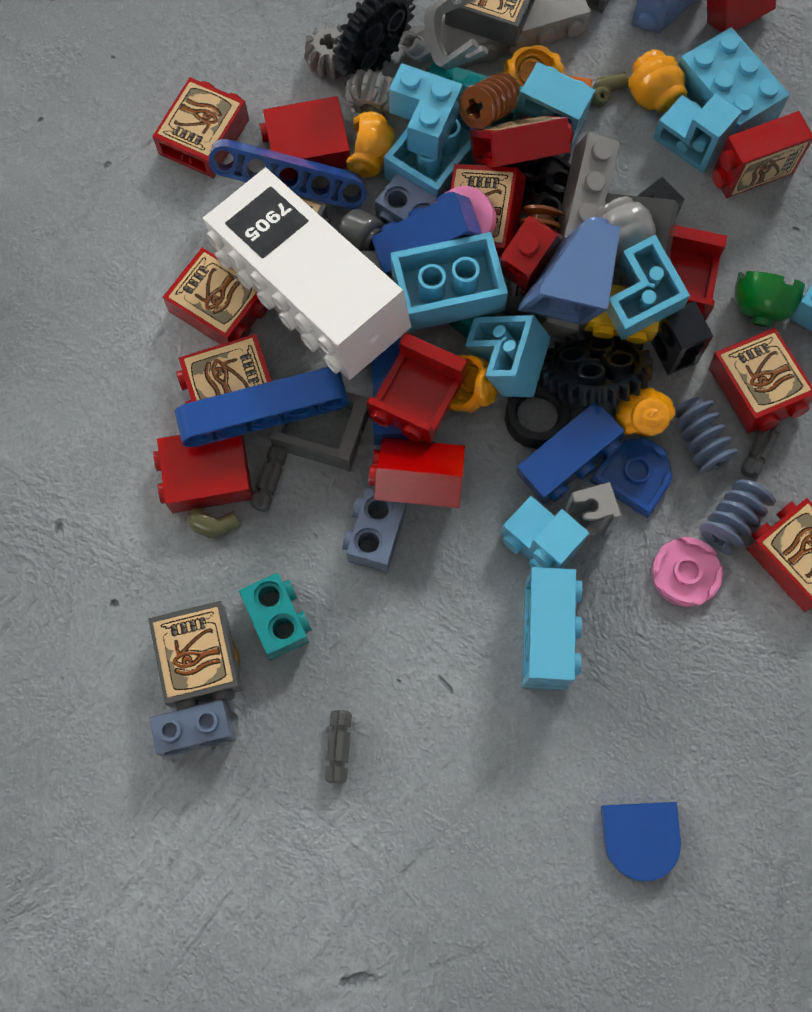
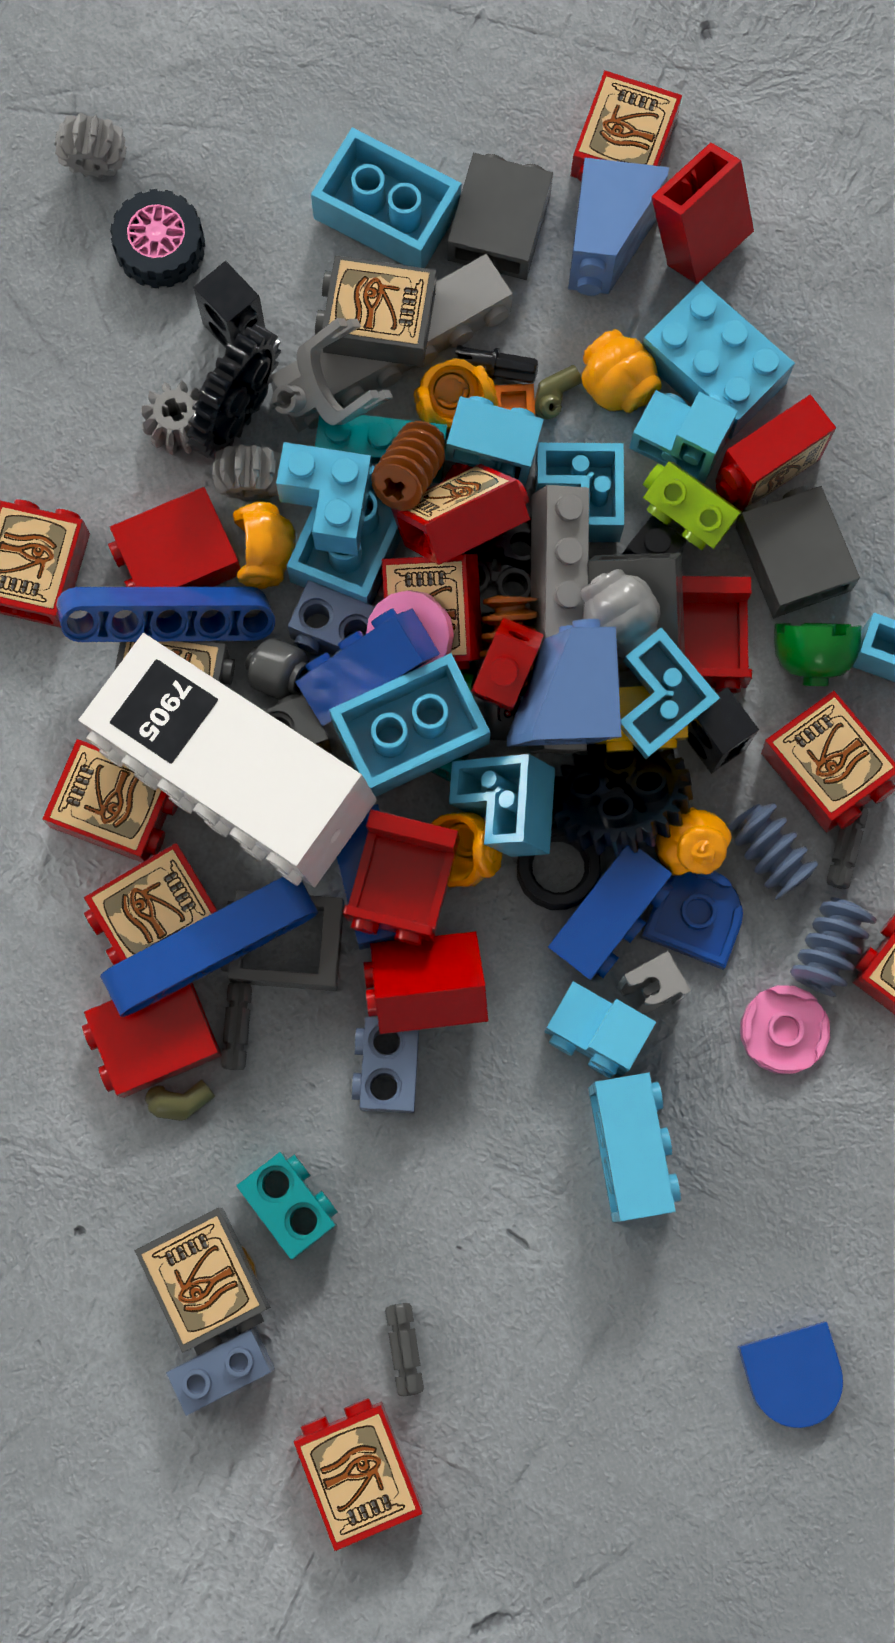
camera: 15 degrees left, 5 degrees up
(278, 832) = (357, 1473): none -> brick
(574, 62) = (501, 364): none -> black axle
(631, 150) = (590, 466): none -> medium azure brick
(692, 175) = (692, 504): none -> lime brick
(765, 228) = (796, 550): none -> dark grey brick

